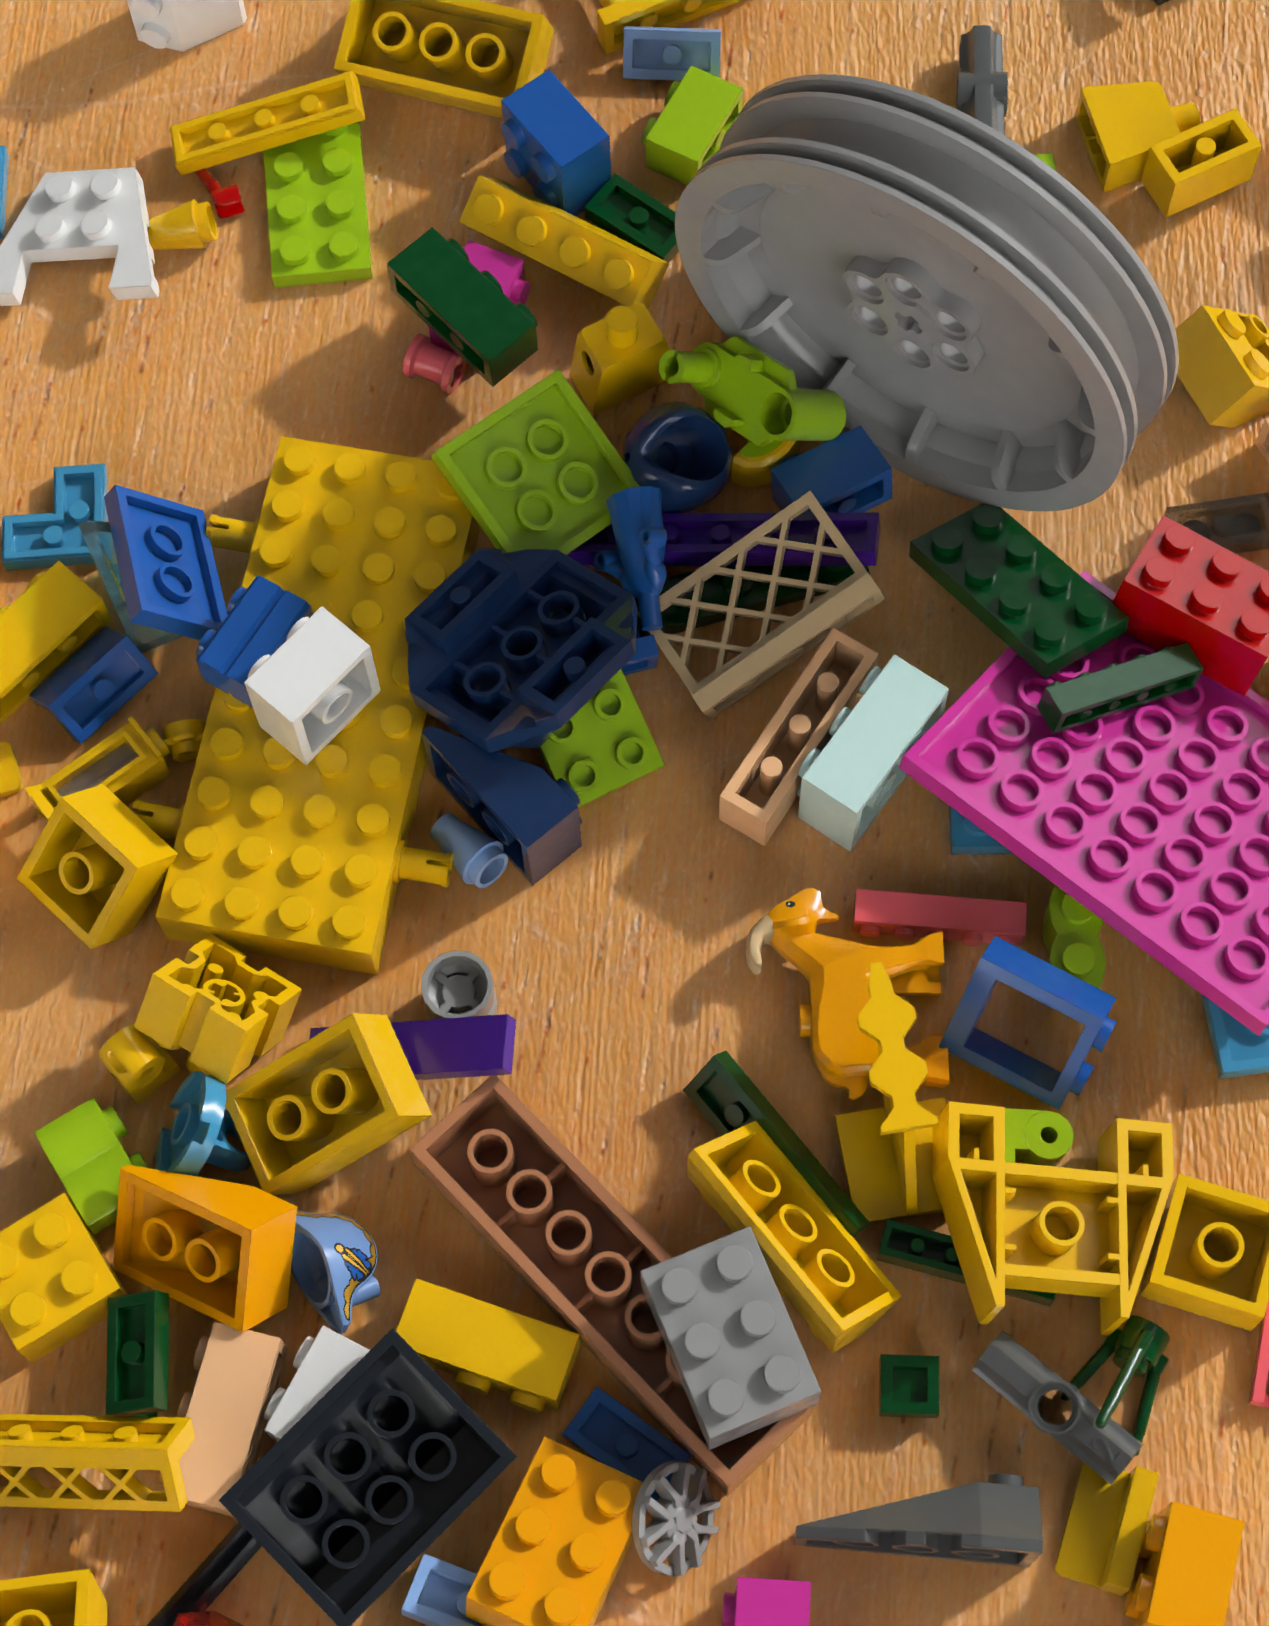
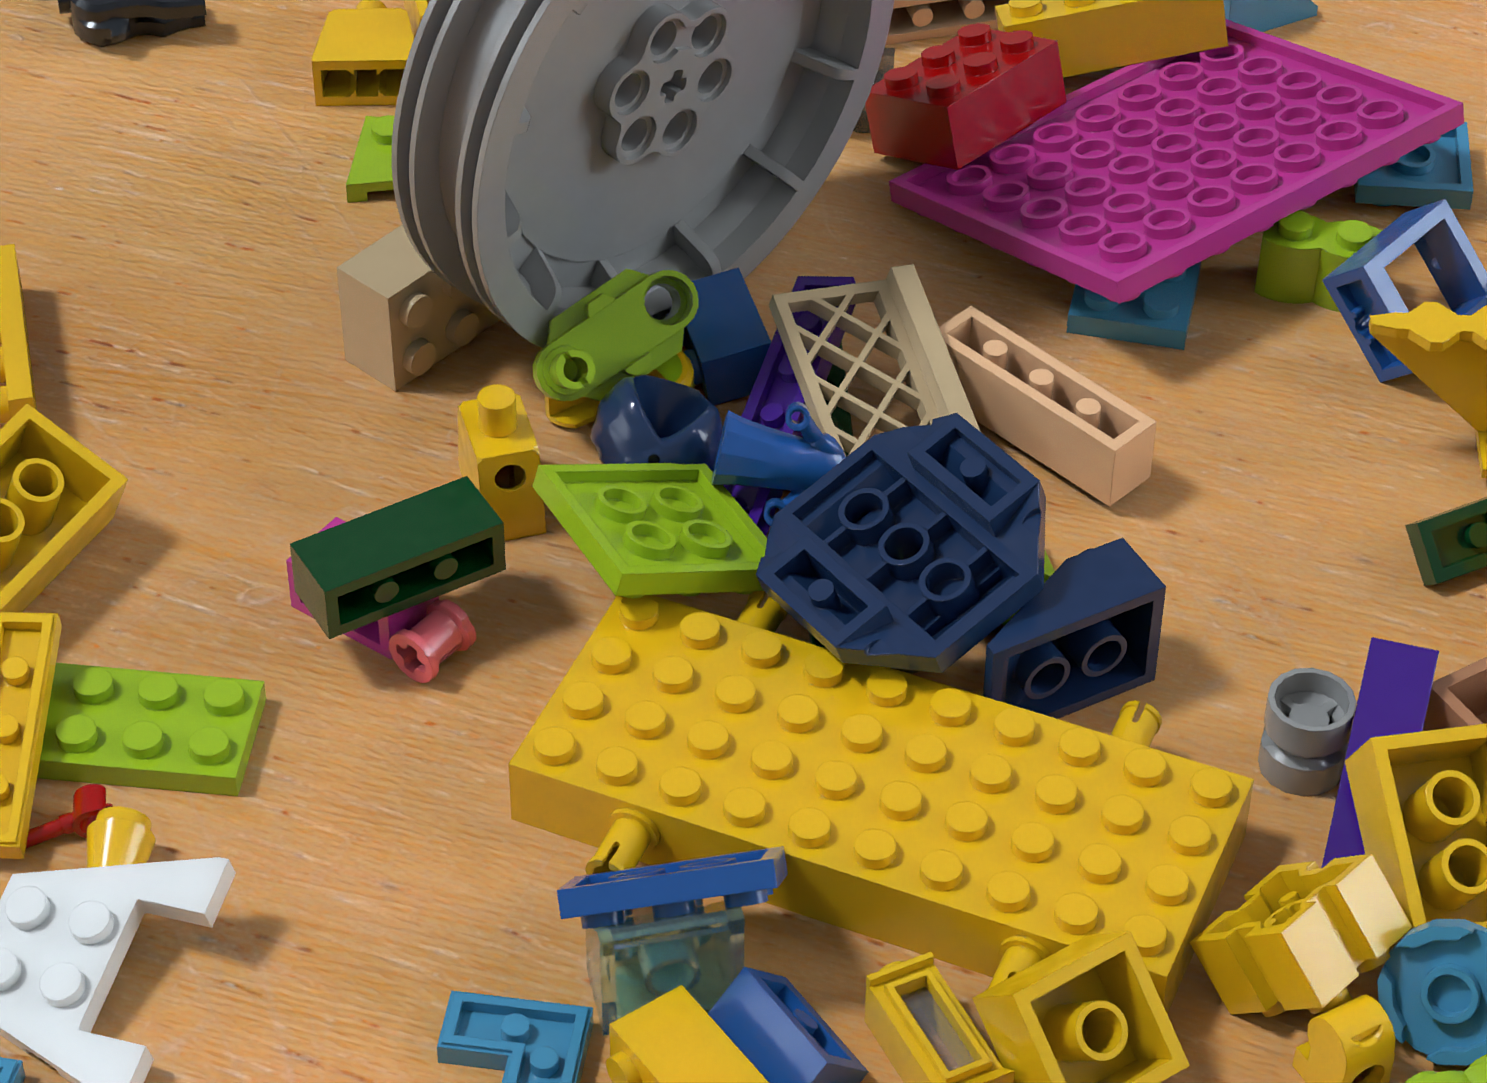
camera: 80 degrees left, 25 degrees down
(184, 738) = (893, 946): yellow plate -> none
(254, 627) = (824, 792): blue brick -> none
(312, 684) = (920, 721): white brick -> none
(476, 855) = (1103, 703): light blue cone -> none
(555, 144) = (189, 463): blue brick -> none
(563, 242) = (318, 488): yellow brick -> none
(634, 217) = (305, 437): dark green plate -> none
(669, 52) = (86, 369): light blue plate -> none
(691, 124) = (201, 368): lime brick -> none
(839, 988) = (1344, 431): light orange animal -> none
(860, 764) = (1086, 326): light aqua brick -> none
(919, 915) = (1265, 360): coral piece -> none
(981, 79) = (274, 141): dark grey piece -> none
(1018, 588) = (908, 211): dark green plate -> none
(1119, 687) = (1055, 152): dark green piece -> none

